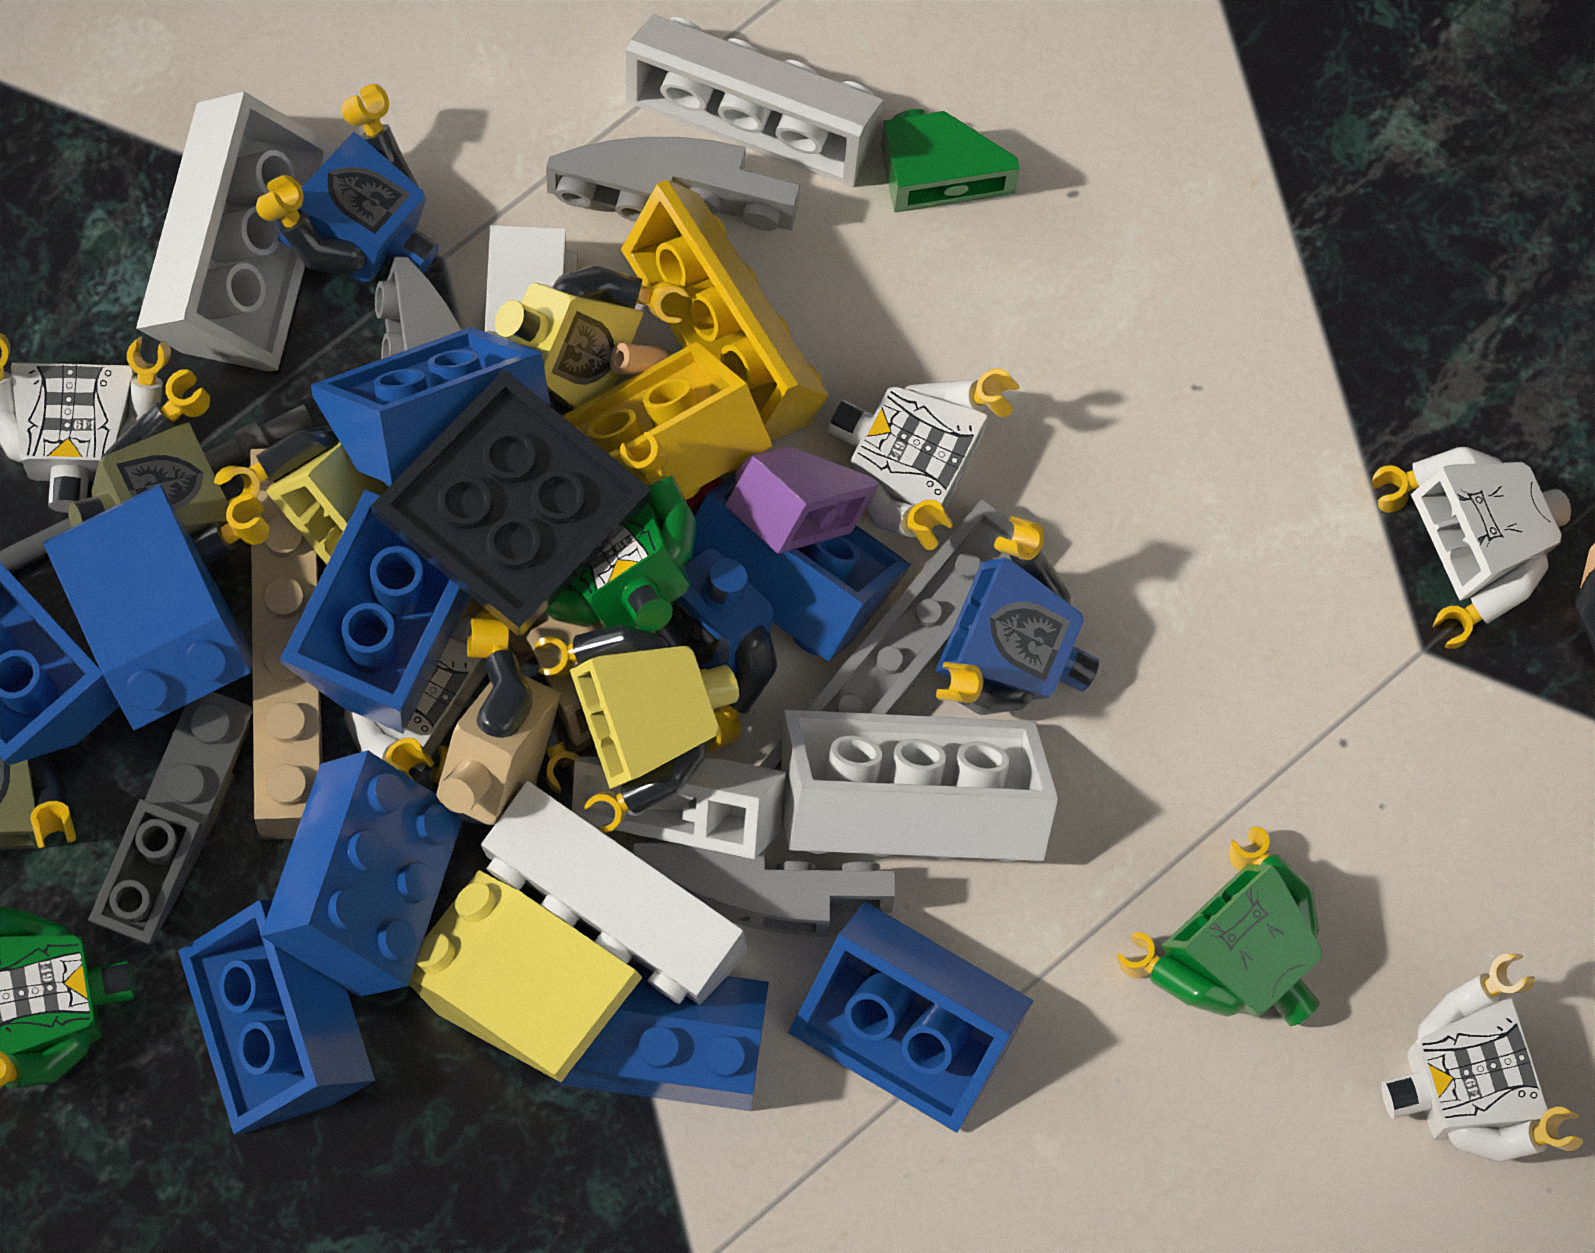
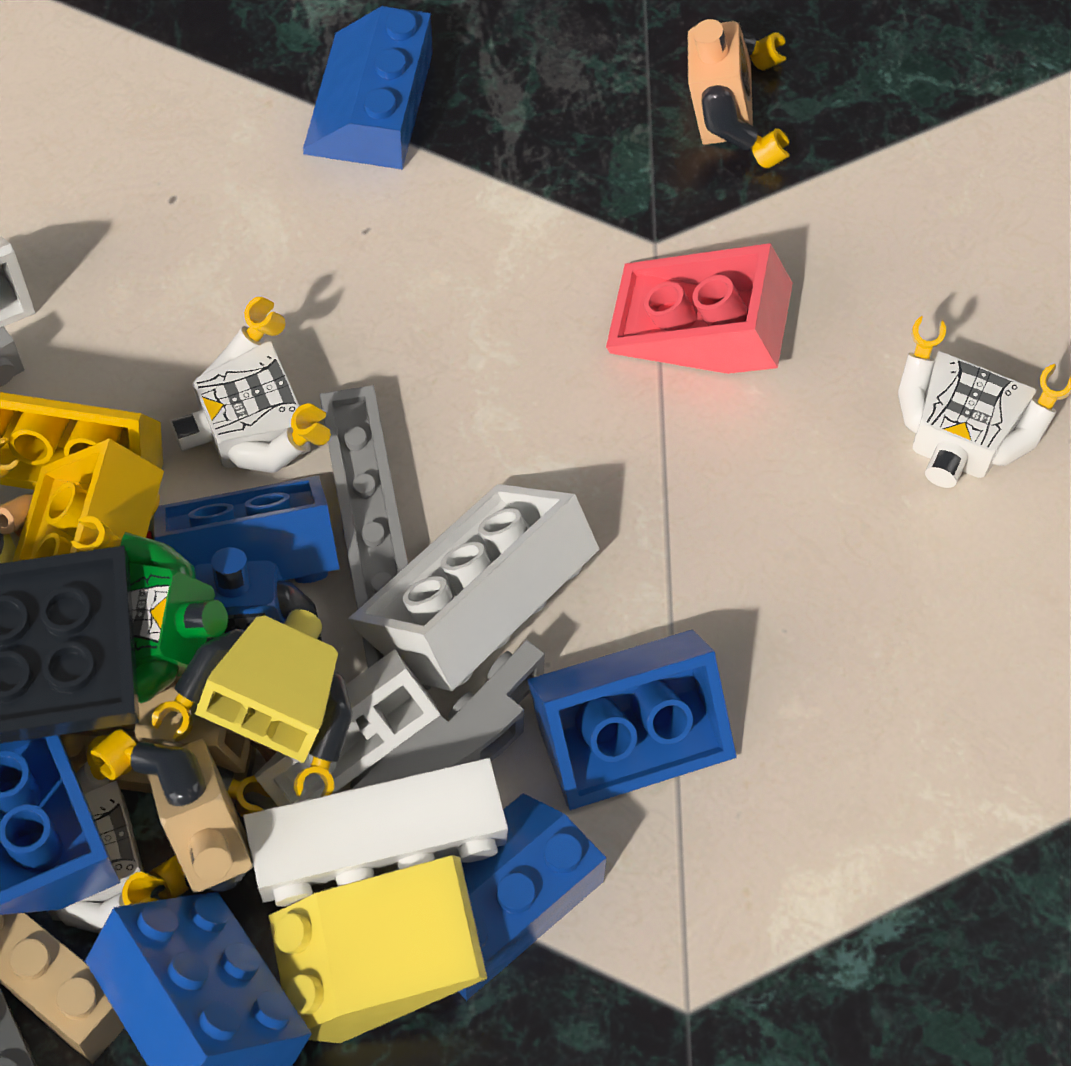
camera: 45 degrees left, 10 degrees down
(798, 498) = (212, 487): medium lavender slope -> none
(942, 161) = (76, 244): green slope -> none
(1015, 631) = (428, 437): torso -> none
(1243, 944) = (764, 473): green torso -> none
(1345, 263) = (372, 89): none -> blue slope
(1375, 755) = (704, 310): none -> coral slope
(1486, 526) = (613, 138): white torso -> none

